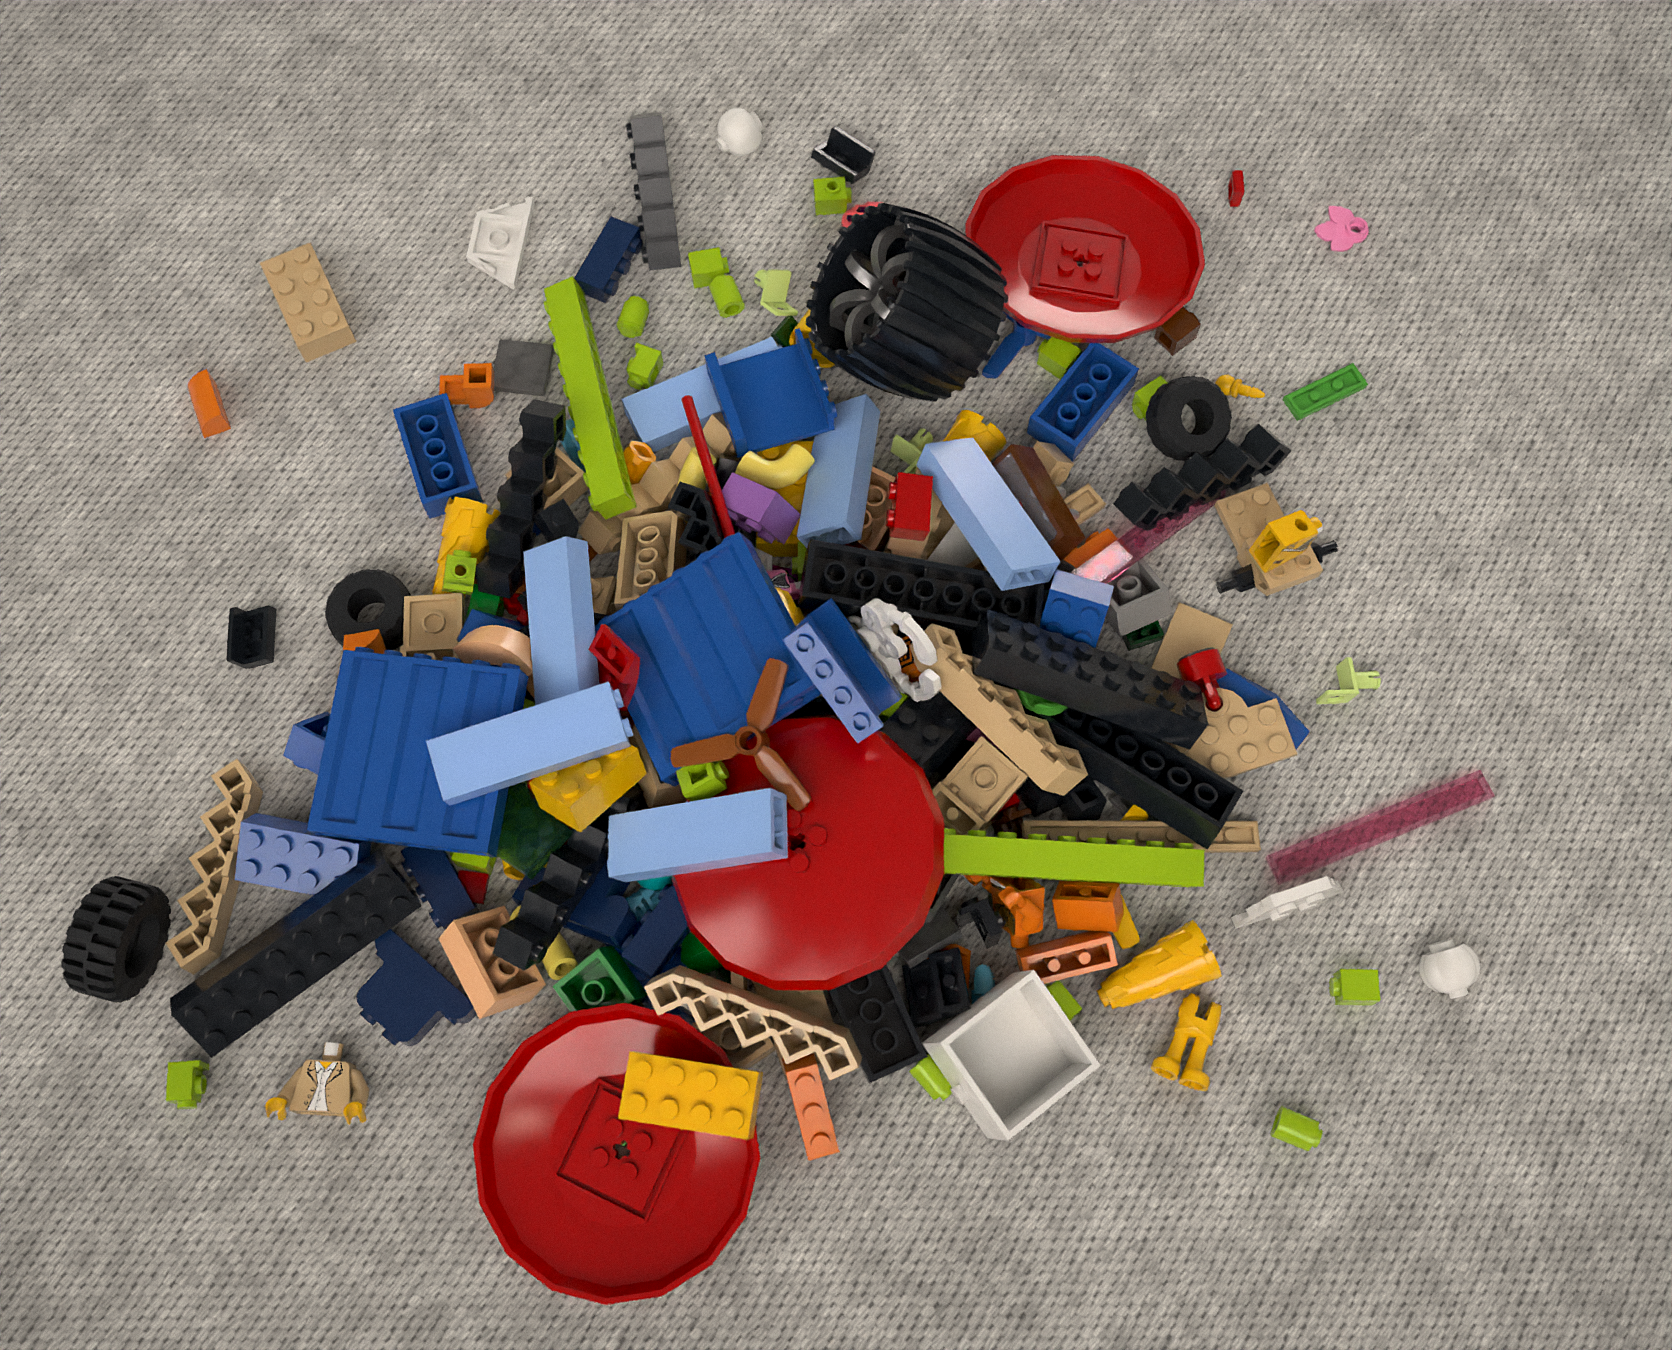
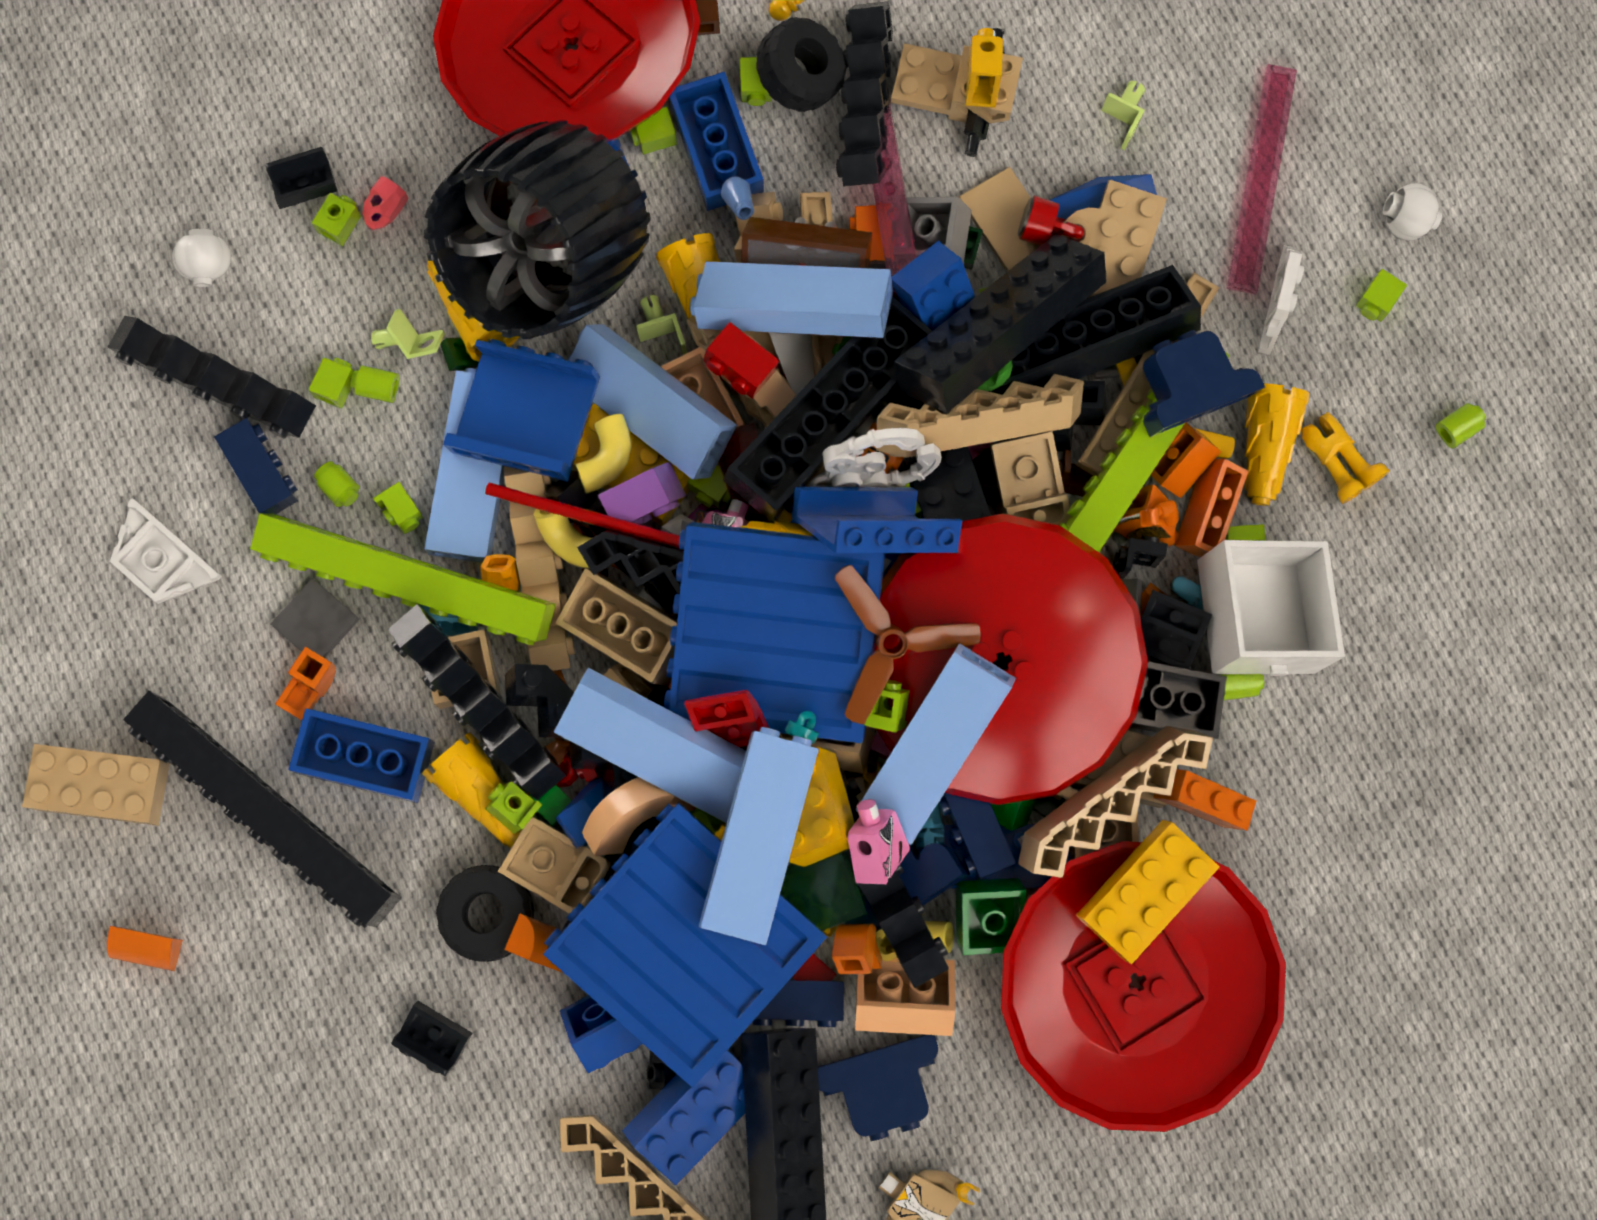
camera: 60 degrees left, 10 degrees up
(352, 417) = (261, 808): none -> black brick
(497, 889) = (856, 949): none -> orange brick
(587, 843) = (876, 843): none -> bright pink torso
(638, 725) = (798, 729): none -> teal tile
(1046, 435) = (737, 196): none -> medium blue cone
(1154, 864) = (1193, 380): none -> dark blue brick

